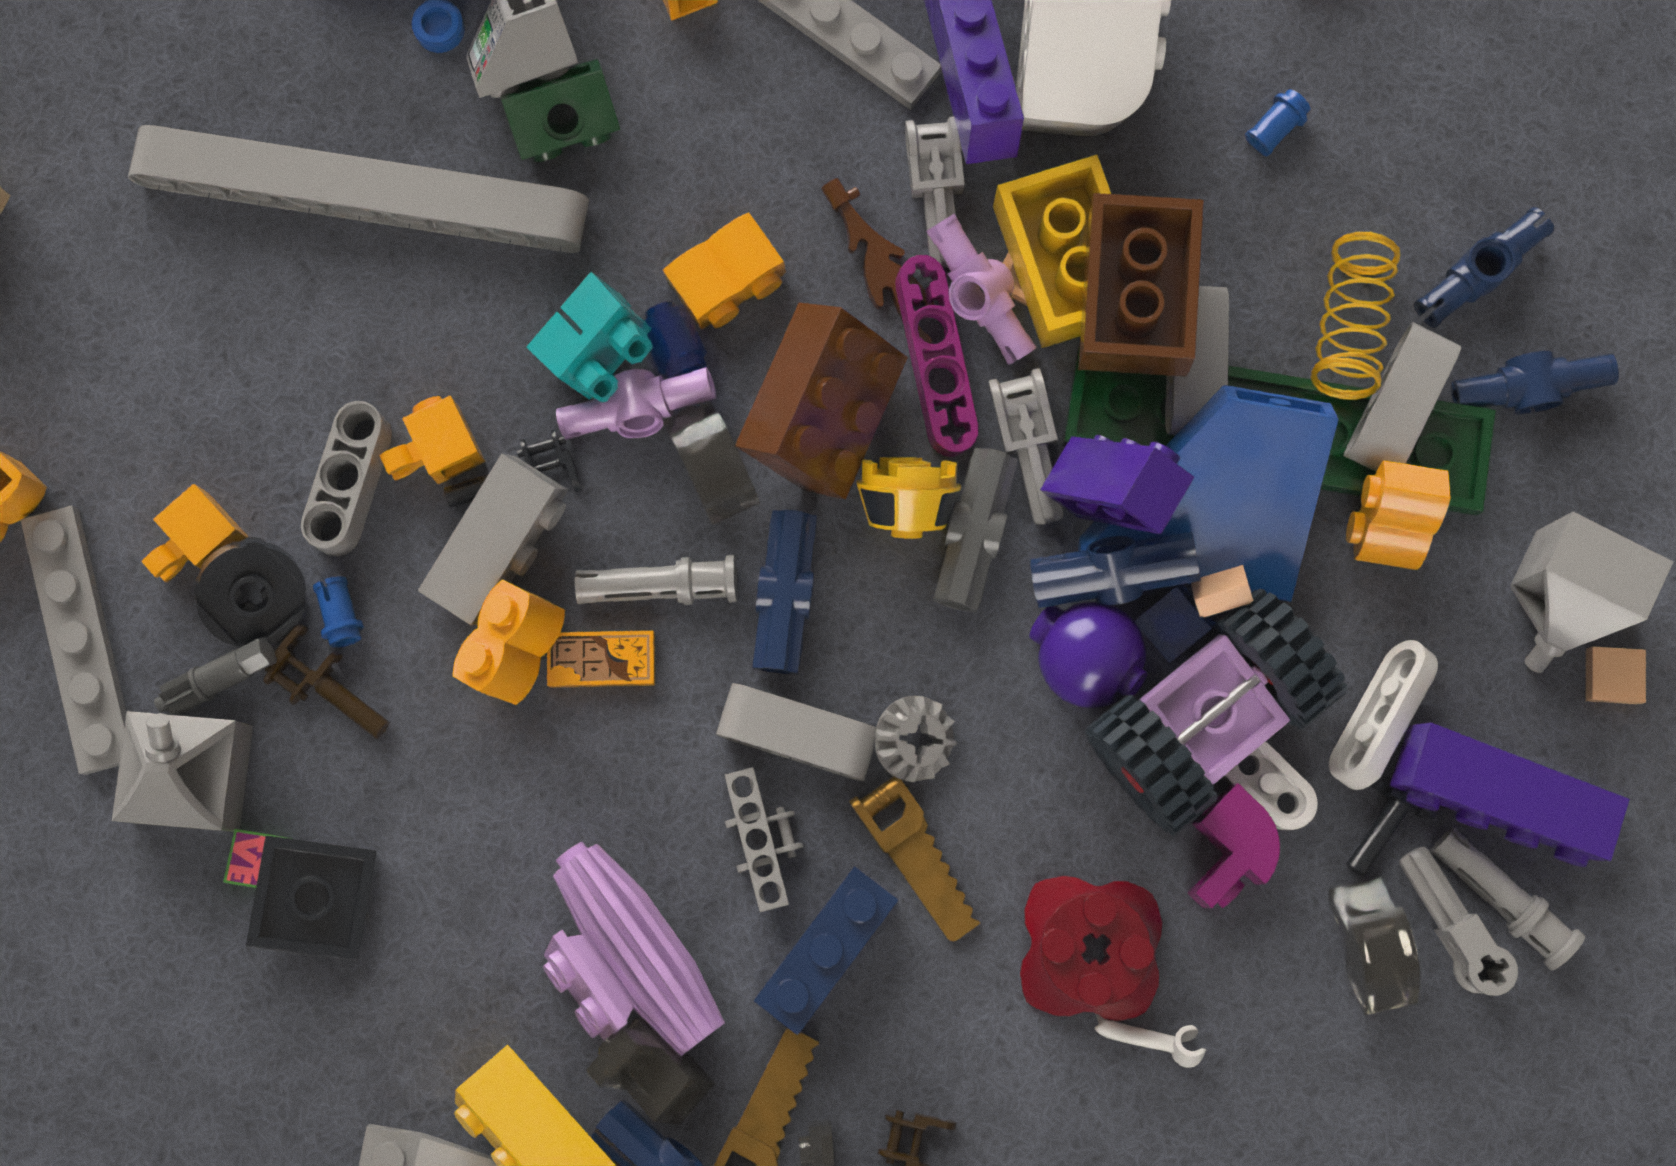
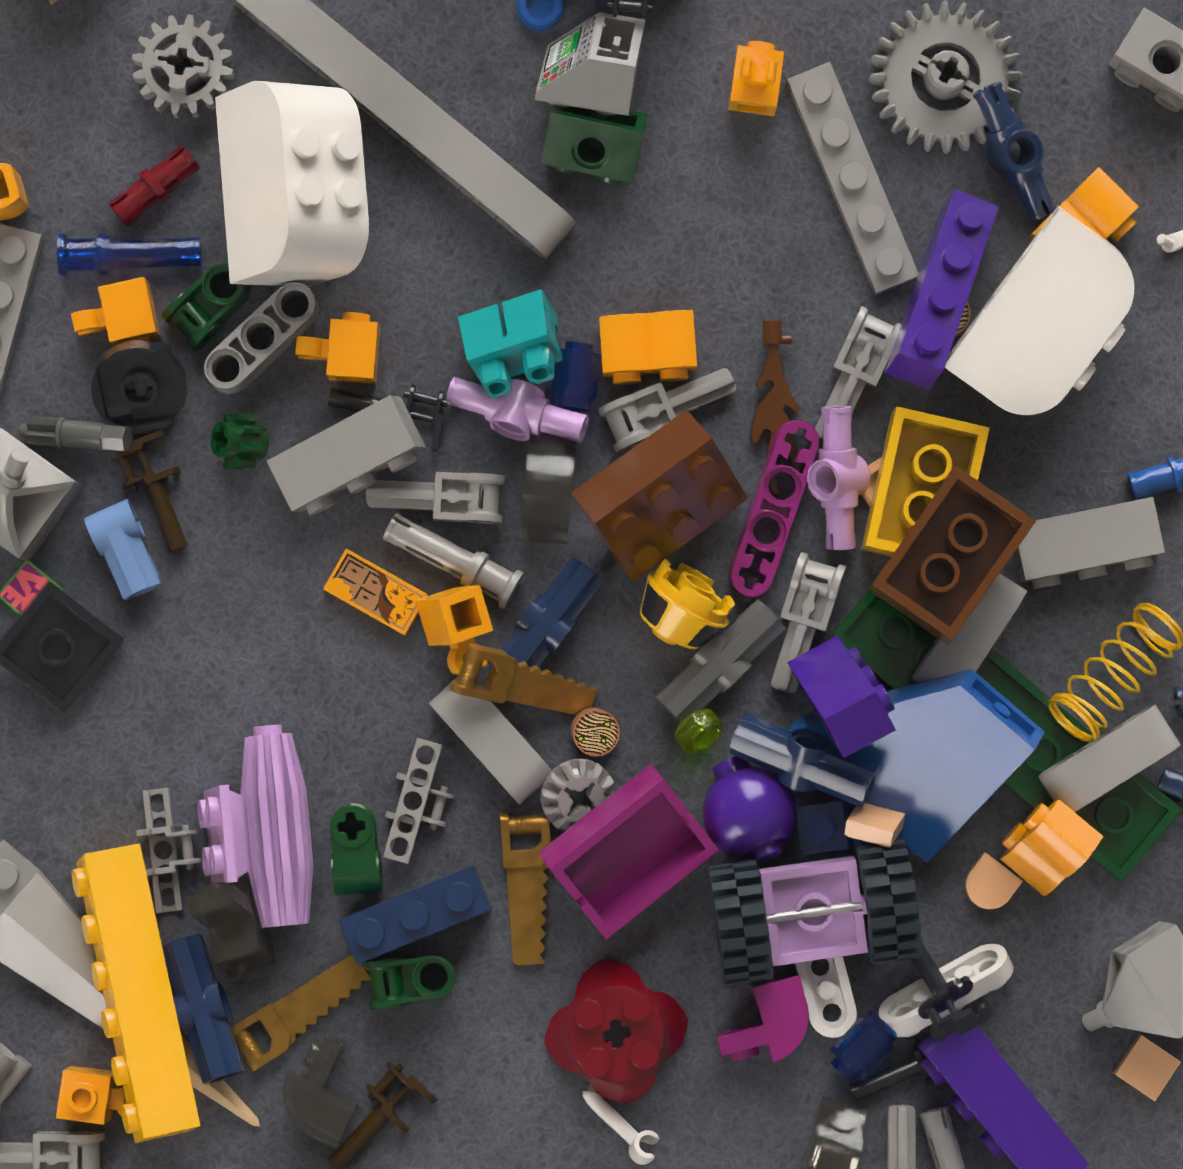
camera: 30 degrees right, 5 degrees up
(145, 267) = (163, 61): none -> light grey gear
(147, 487) = (108, 253): none -> clear blue pin
(158, 396) = (154, 185): none -> dark red pin
(273, 480) = (205, 307): none -> dark green piece
(287, 308) = (291, 183): none -> white brick
(319, 756) = (121, 542): none -> medium blue piece
(337, 612) = (196, 438): blue pin -> none
(381, 589) = (239, 441): none -> dark green gear
(509, 642) = (306, 545): light orange brick -> none
(536, 1021) = (172, 861): none -> light grey piece
(621, 523) = (451, 496): none -> light grey connector
(695, 637) = (454, 620): none -> light orange brick
(736, 932) = (355, 861): none -> dark green piece
(757, 336) = (653, 407): none -> light grey connector
(794, 660) = (520, 683): none -> pearl gold piece
(854, 1022) = (405, 980): none -> dark green piece
(894, 667) = (594, 732): none -> tile
(994, 607) = (699, 731): none -> clear neon green tile
(999, 760) = (628, 851): none -> magenta piece
(1256, 210) = (1089, 543): none -> light grey brick
(1339, 817) = (863, 1047): none -> clear blue brick
(1358, 588) = (990, 883): none -> light nougat tile
(1391, 720) = (943, 998): none -> black piece

